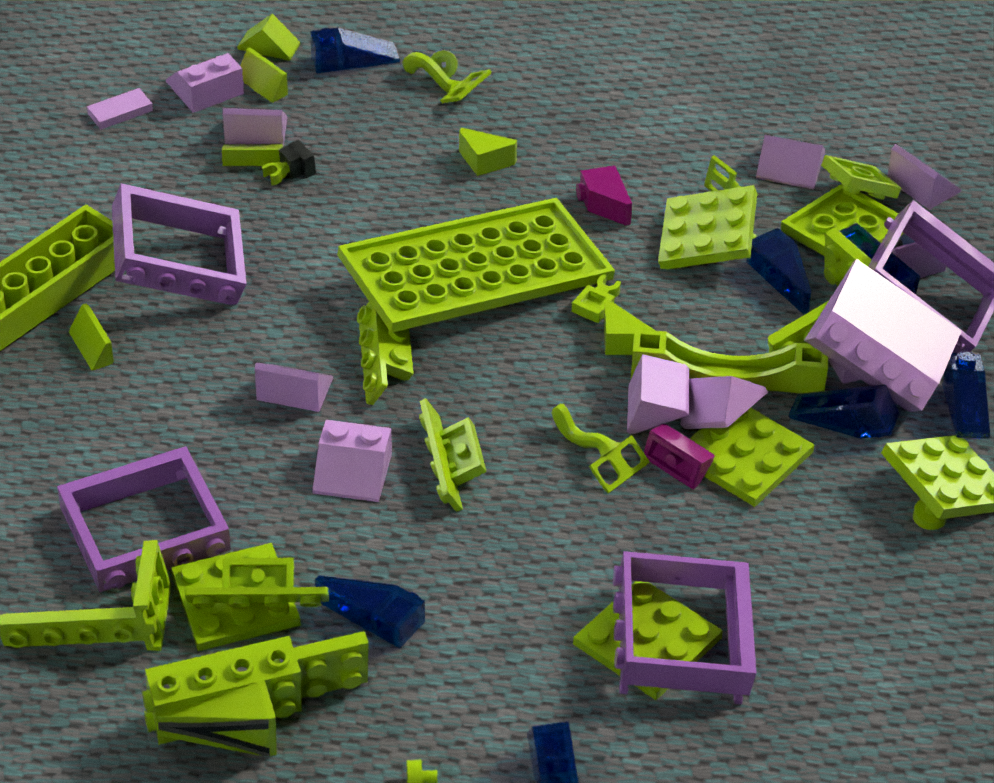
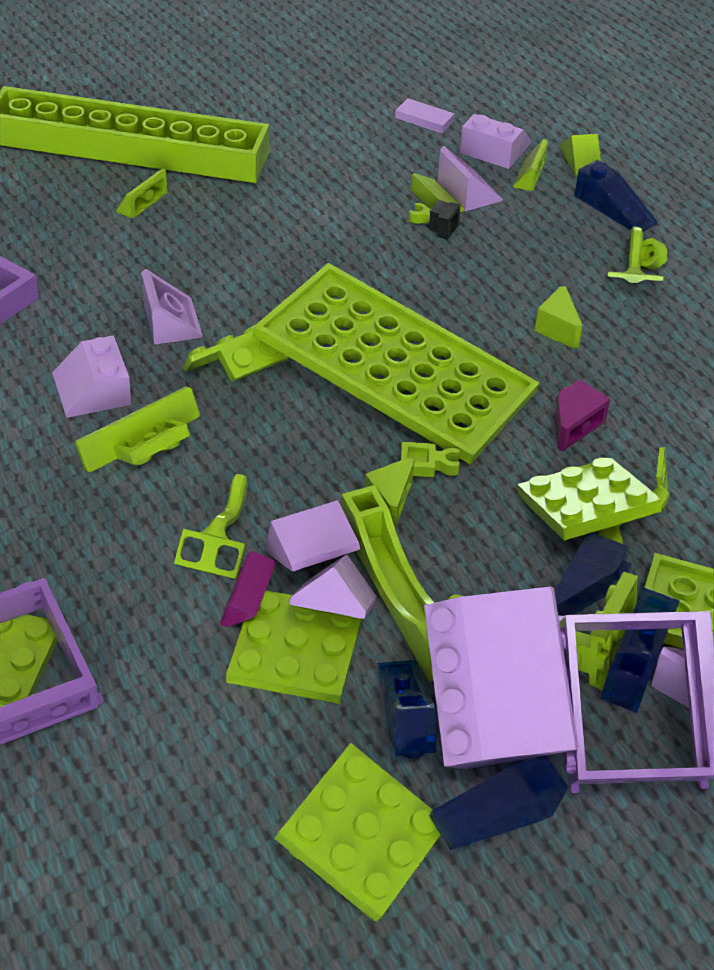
camera: 60 degrees right, 0 degrees up
(183, 214) = (299, 164): medium lavender window -> none

